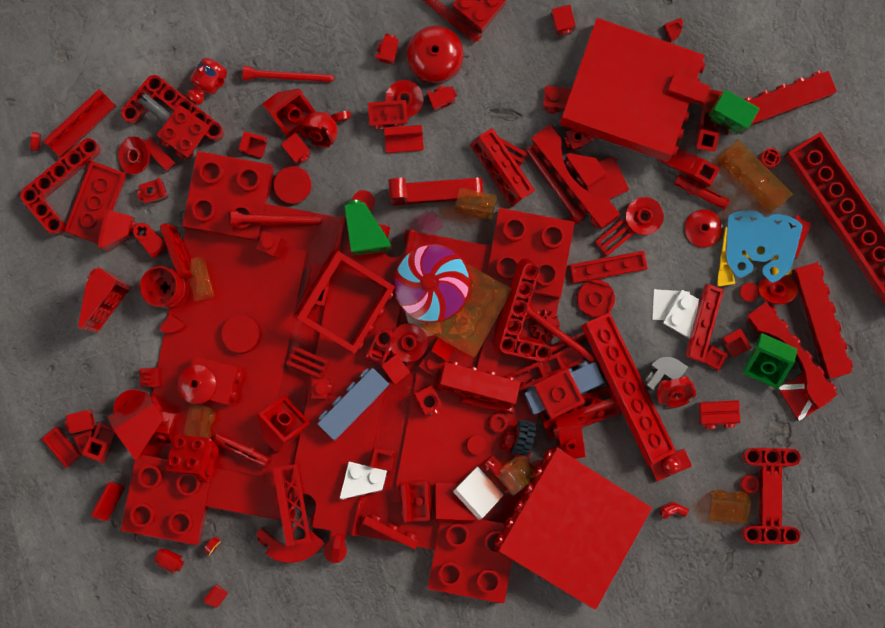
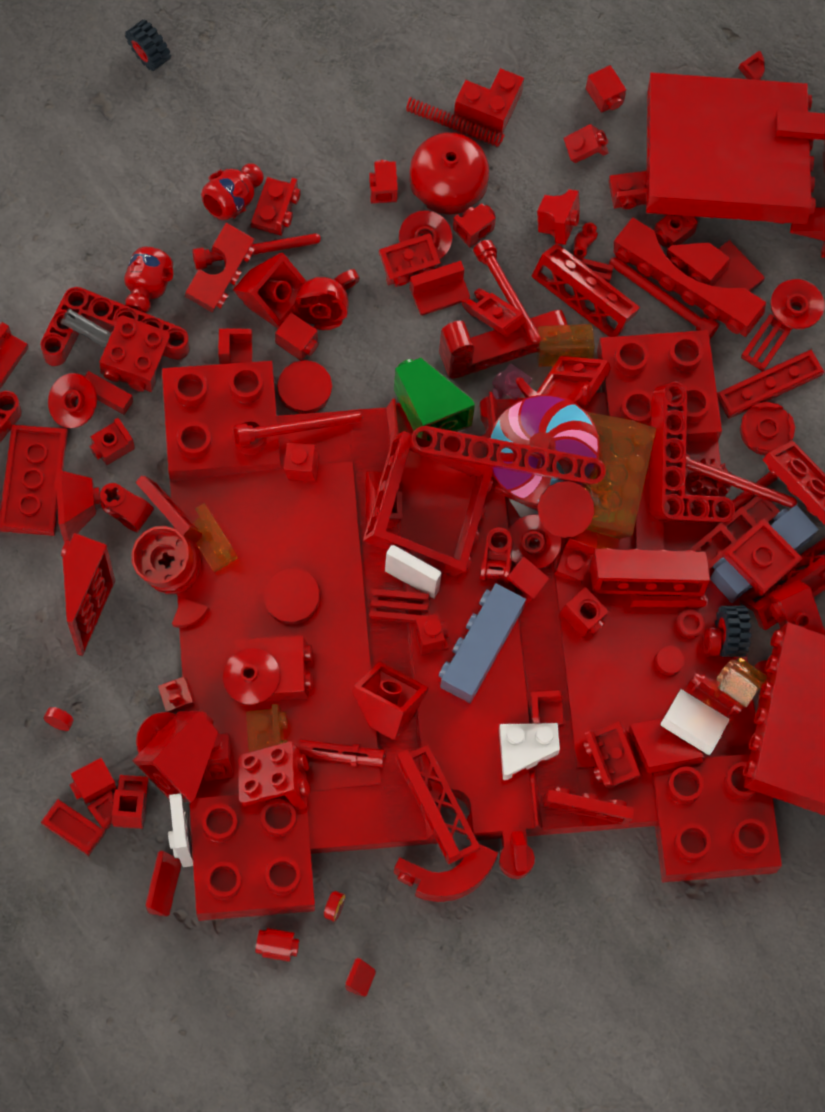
camera: 20 degrees left, 15 degrees down
(69, 373) = (58, 718): none -> red tile
(123, 478) = (180, 837): none -> white wing
(270, 75) = (210, 289): none -> red arch
(281, 30) = (231, 191): none -> red piece
(309, 47) = (275, 206): none -> red bracket
(320, 344) = (412, 571): none -> white tile
(407, 295) = (521, 455): none -> red beam
(433, 330) = (565, 509): none -> red tile
(434, 169) = (494, 312): none -> red hinge
(442, 121) = (486, 253): none -> red piece
(467, 236) = (571, 379): none -> red piece
(500, 108) = (559, 215): none -> red brick
(513, 128) = (584, 239): none -> red arm
(537, 57) = (586, 143): none -> red bracket

